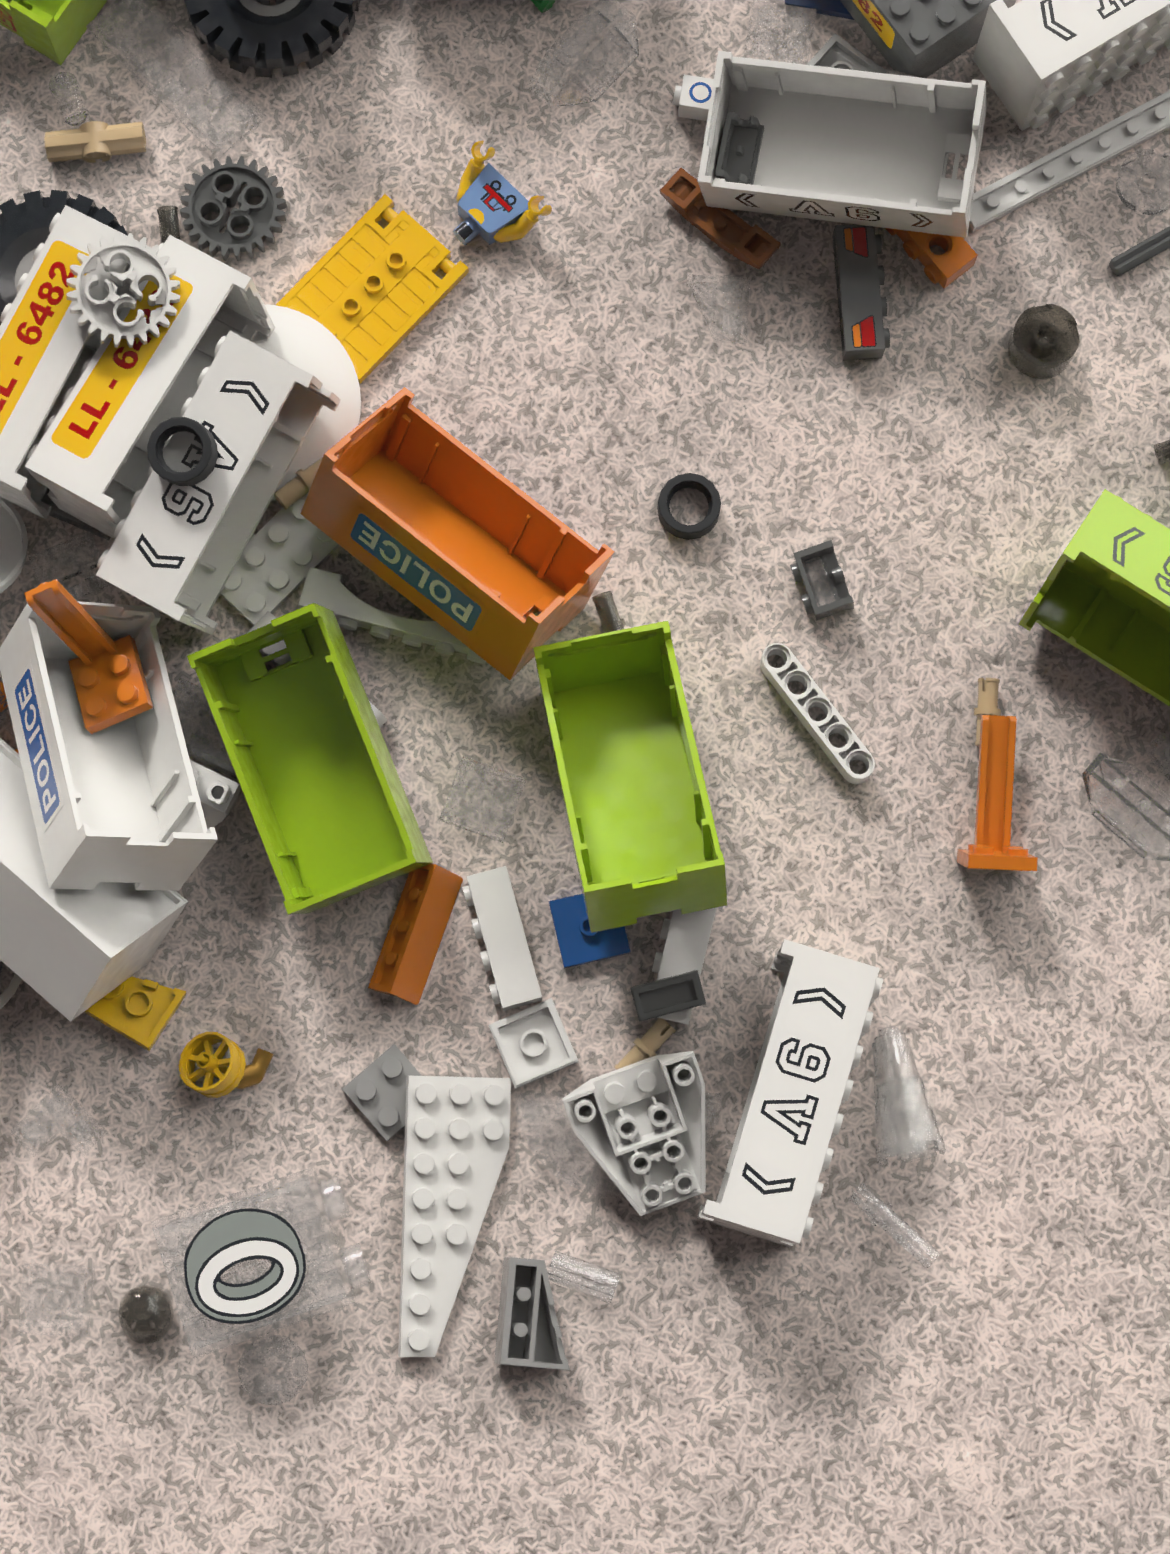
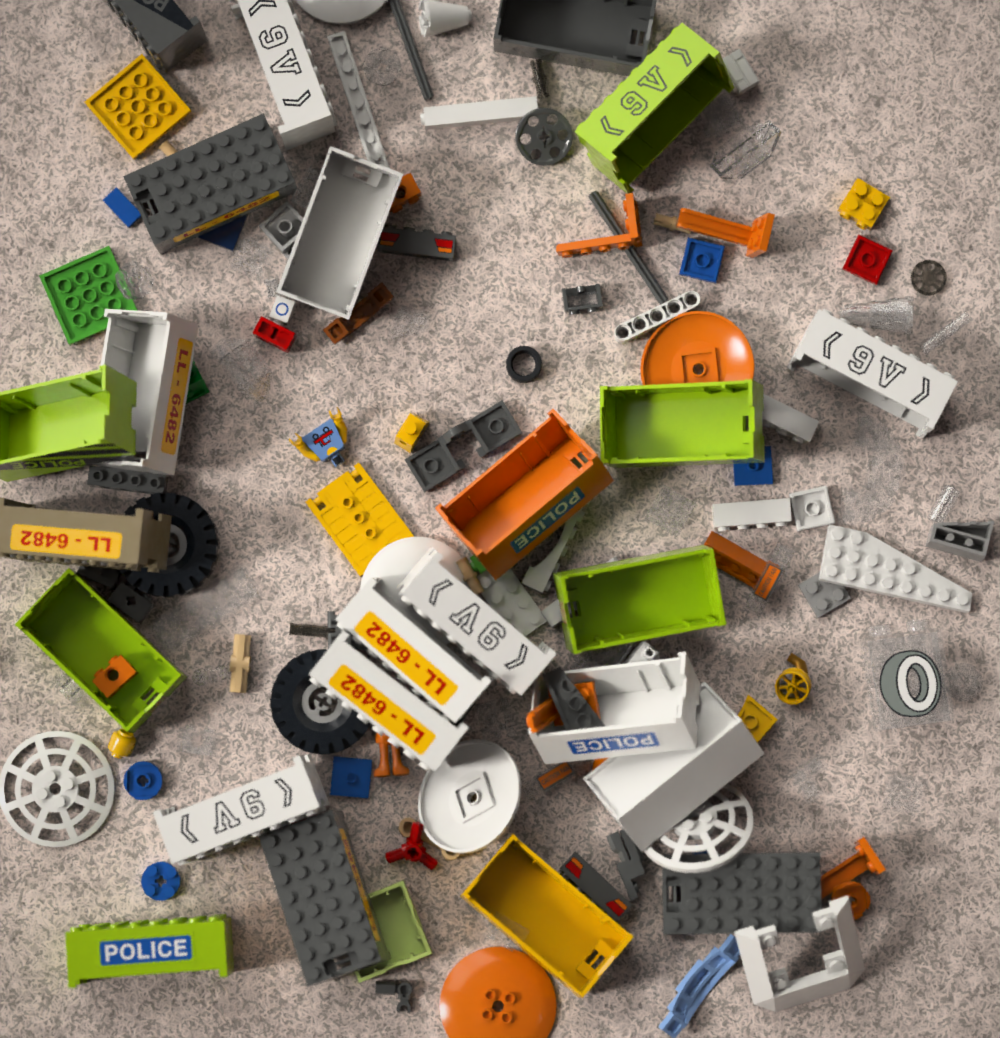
camera: 75 degrees left, 5 degrees up
(99, 674) = (570, 703): none -> dark grey wing
(103, 314) = (379, 661): white gear -> none
(144, 1310) = (920, 746): clear smoke helmet -> none
(162, 434) = (480, 635): black tyre -> none
(206, 198) = (307, 576): dark grey gear -> none
(392, 987) = (768, 580): none -> clear slope
(536, 340) = (411, 432): none -> yellow torso
(562, 471) = (435, 462): none -> dark grey plate
(608, 613) = (583, 420): clear smoke pin -> none
(646, 1128) = (871, 454): white wedge -> none
(648, 1044) = (826, 448): tan pin -> none
(655, 90) = (274, 334): none -> red brick
(668, 995) = (802, 428): dark grey tile -> none
(739, 149) = (325, 293): dark grey hinge -> none
(789, 785) = (695, 340): none -> orange dish
(929, 645) = (631, 252): none -> dark grey axle
(932, 773) = (701, 260): none -> blue plate
(968, 638) = (605, 244): none -> orange bracket
(987, 1177) = (928, 277): none -> clear smoke wheel
(995, 1061) = (867, 259): none -> red plate
(1040, 359) = (467, 135): clear smoke brick -> none
(1075, 457) = (551, 141): none -> dark grey wedge
(1093, 1036) = (863, 204): none -> yellow plate
(1106, 354) = (477, 113): none -> white brick

